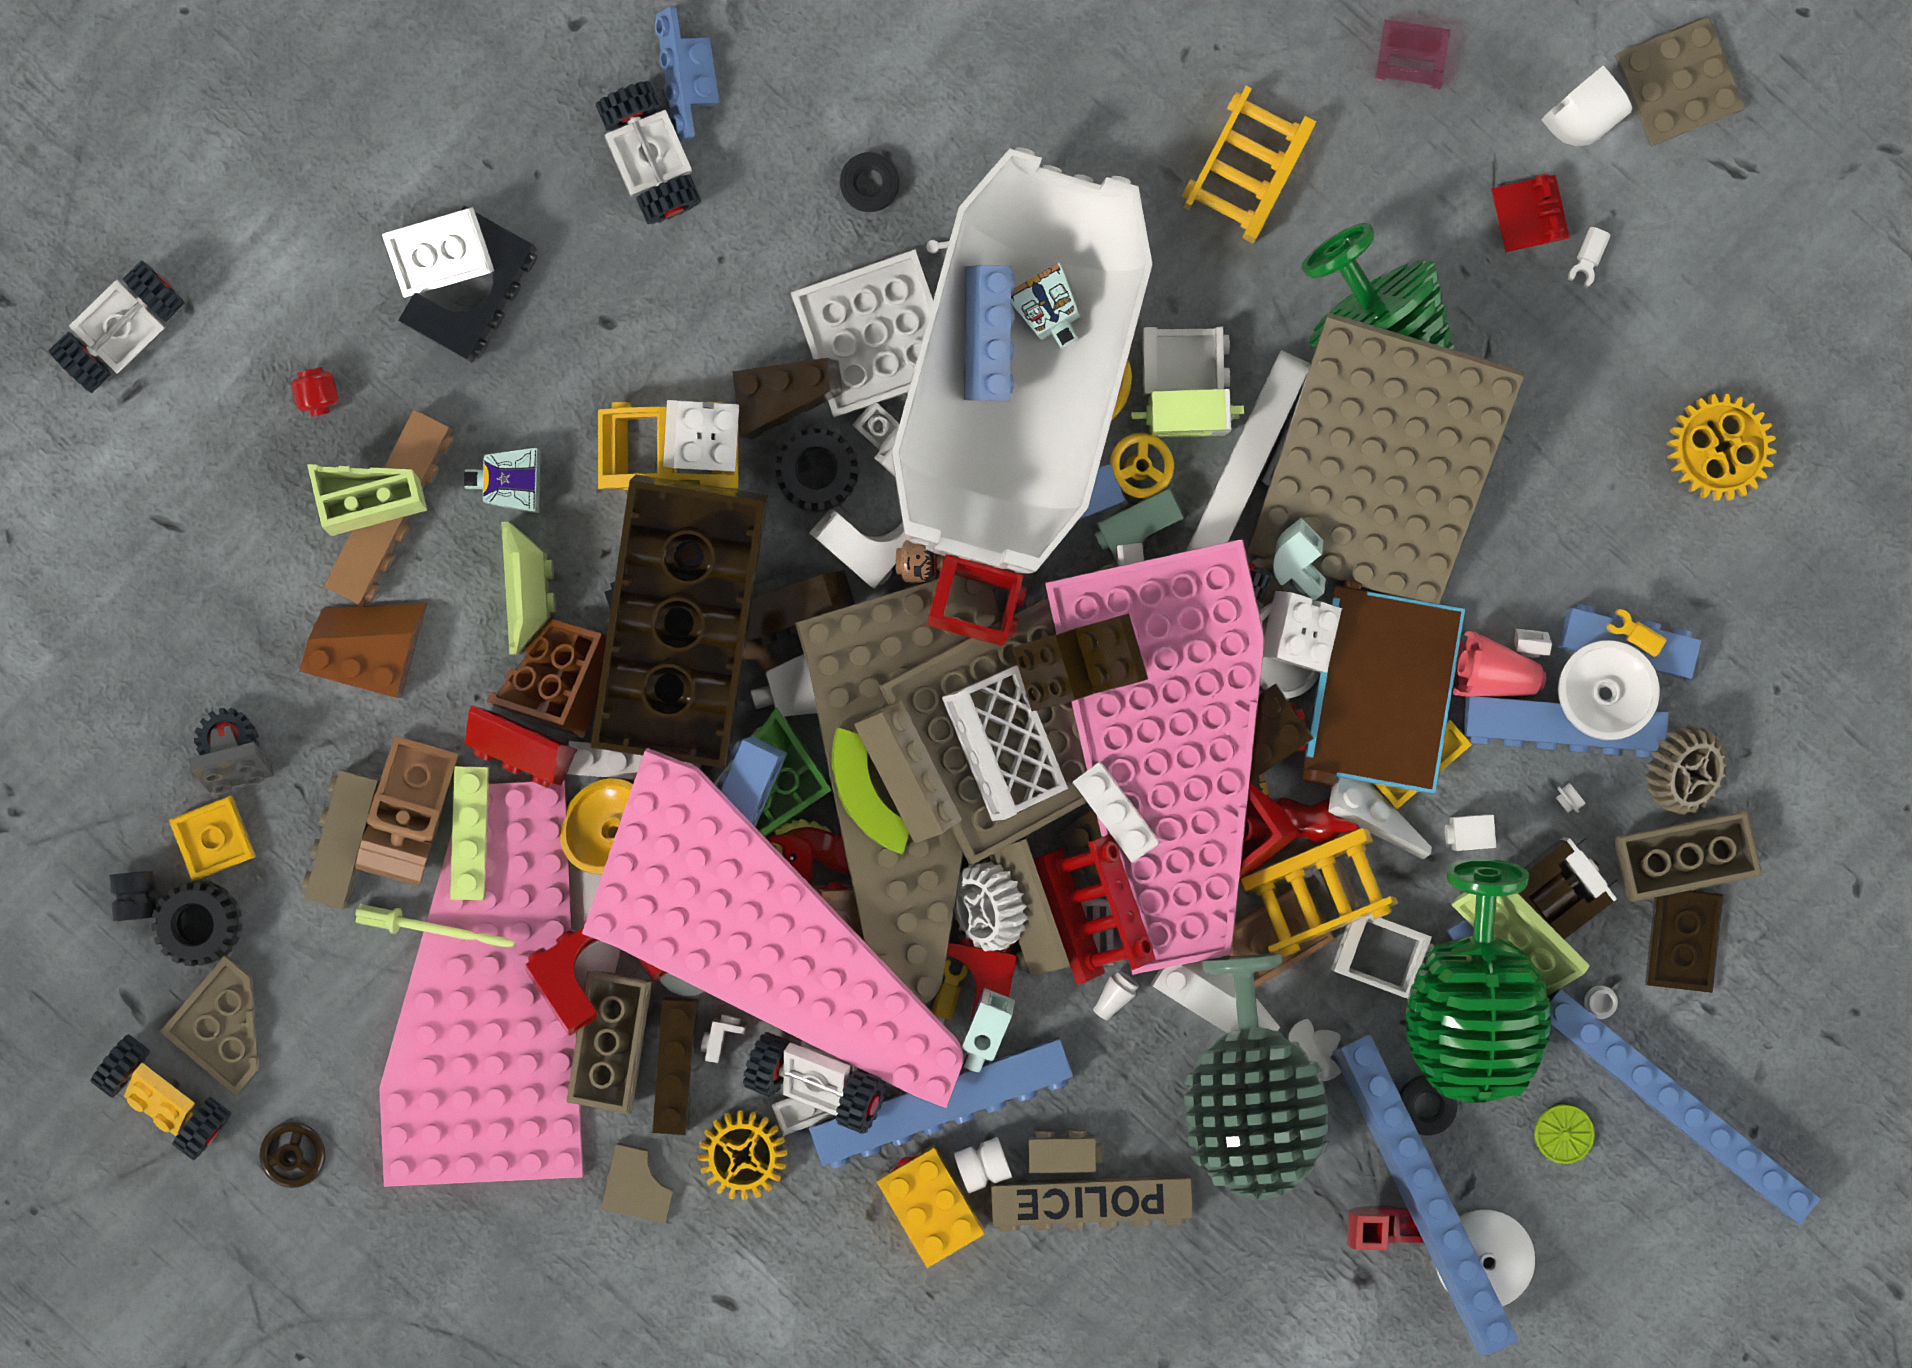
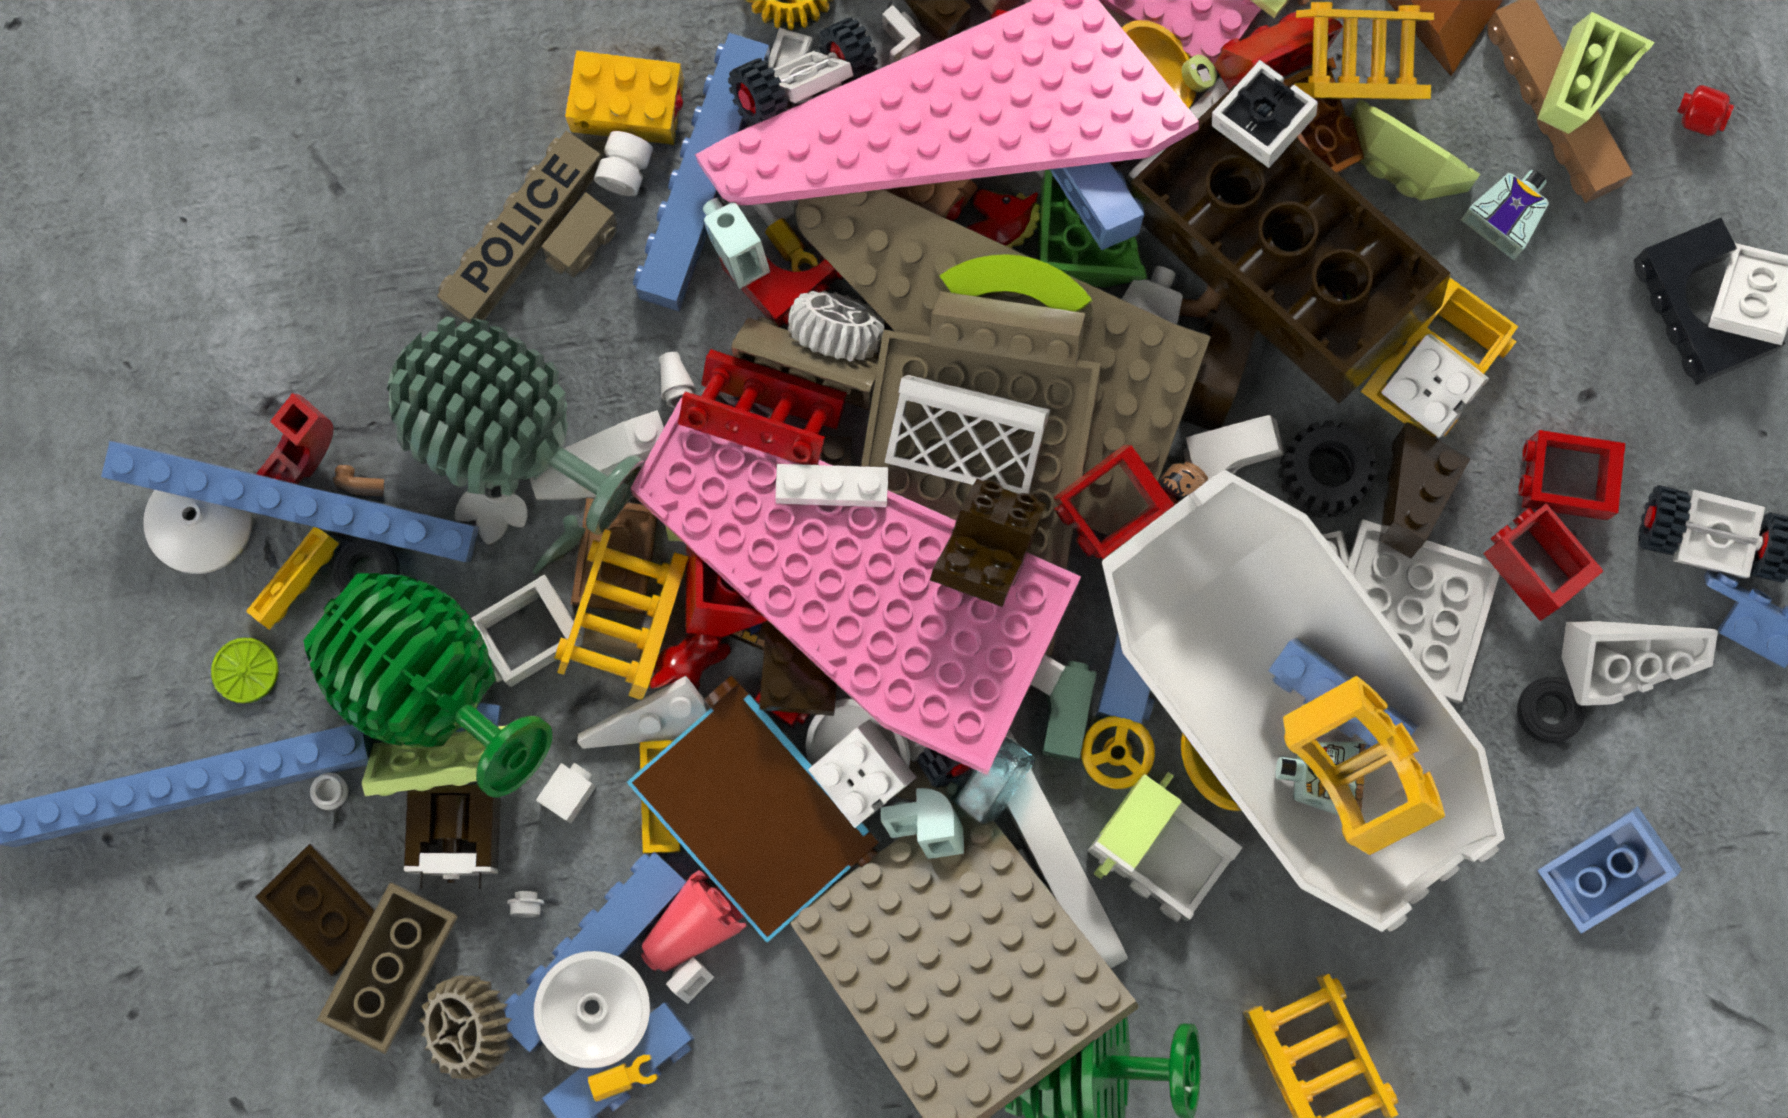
camera: 130 degrees right, 10 degrees down
(491, 647) = (1377, 84): none -> yellow fence
(577, 791) = (1199, 73): none -> yellowish green tile
(606, 705) = (1264, 114): none -> piece
(667, 260) = (1608, 480): none -> red window
(743, 257) = (1561, 547): none -> red window
(793, 159) = (1623, 658): none -> white wedge
(955, 59) = (1610, 870): none -> medium blue slope
(1005, 272) = (1395, 745): none -> yellow window
(1253, 529) = (988, 794): none -> clear light blue brick
(1296, 978) = (563, 544): none -> sand green bar
(1372, 1162) = (357, 485): none -> medium nougat arm
(1477, 1153) = (292, 578): none -> yellow plate

